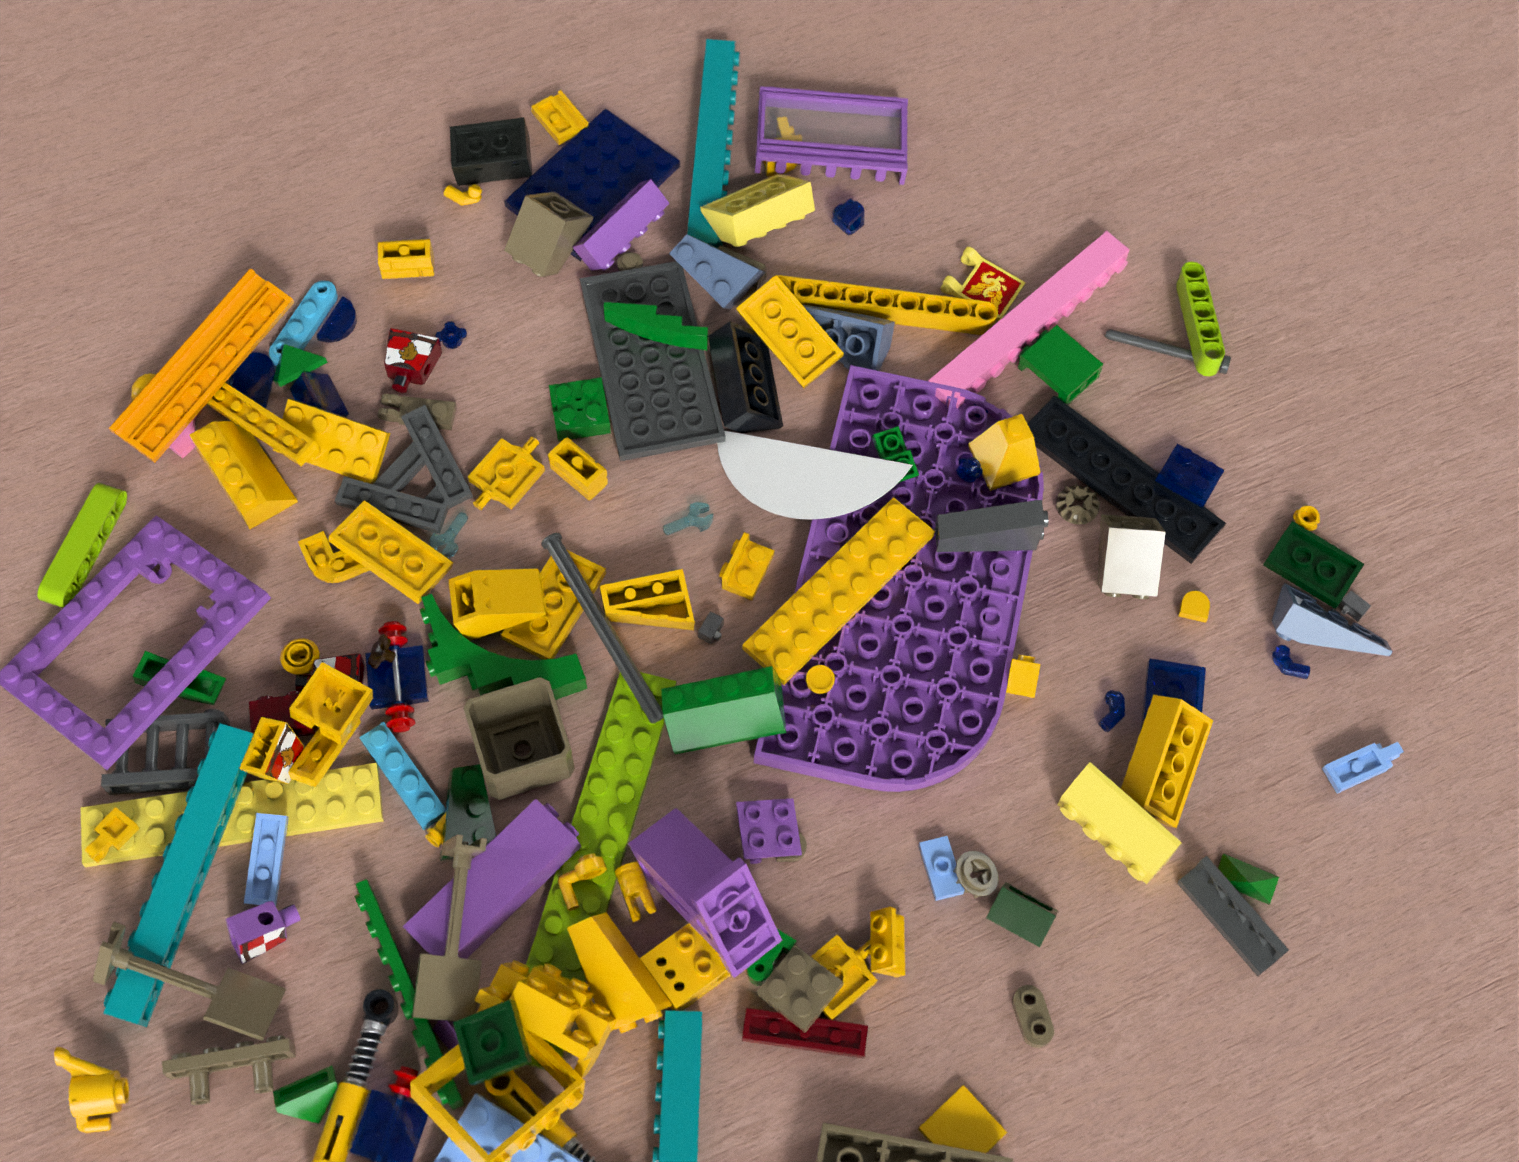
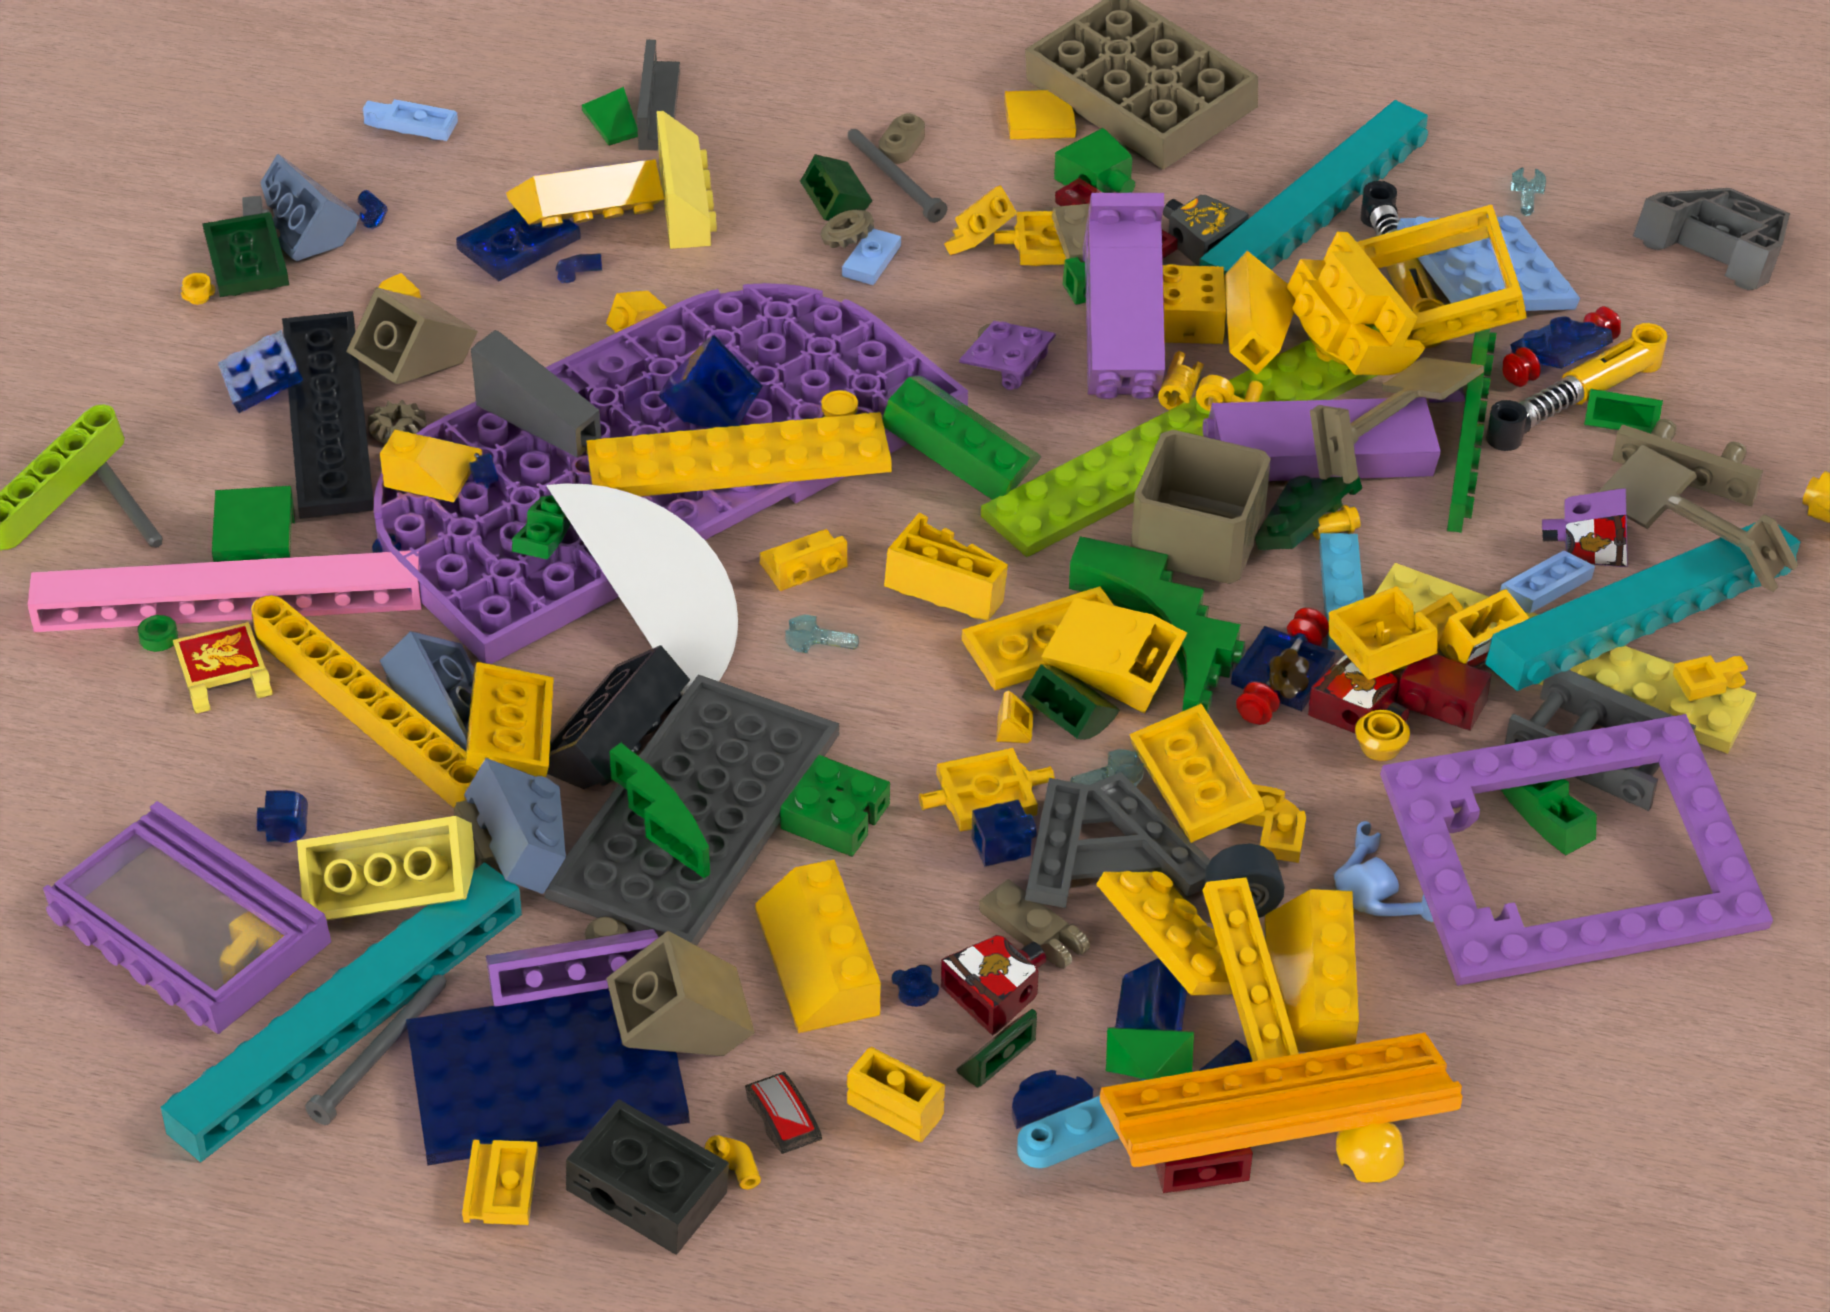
camera: 140 degrees left, 20 degrees down
(82, 545) = (1575, 1005): lime beam -> none
(248, 549) = (1374, 880): none -> light blue piece
(311, 491) = (1257, 866): none -> black wheel
(382, 319) = (1000, 1050): none -> dark green slope
(459, 227) = (784, 1112): none -> slope
(470, 442) = (1002, 832): none -> clear blue brick
(492, 1042) = (1424, 276): dark green plate -> none
(501, 557) = (1069, 702): none -> dark green brick
(513, 321) = (819, 948): none -> yellow slope
(528, 534) = (1014, 720): none -> yellow slope
(578, 468) = (902, 730): yellow brick -> none
(603, 627) = (1001, 672): dark grey axle -> none
(674, 100) = (323, 1107): none -> dark grey bar
(711, 628) = (892, 528): flat silver piece -> none
(735, 1070) = (1201, 224): none -> dark grey torso
(863, 1084) = (1098, 161): none -> green torso
(898, 618) = (711, 387): none -> clear blue slope
(1003, 970) = (933, 208): none -> dark grey bar
(1035, 279) = (157, 633): none -> green tile

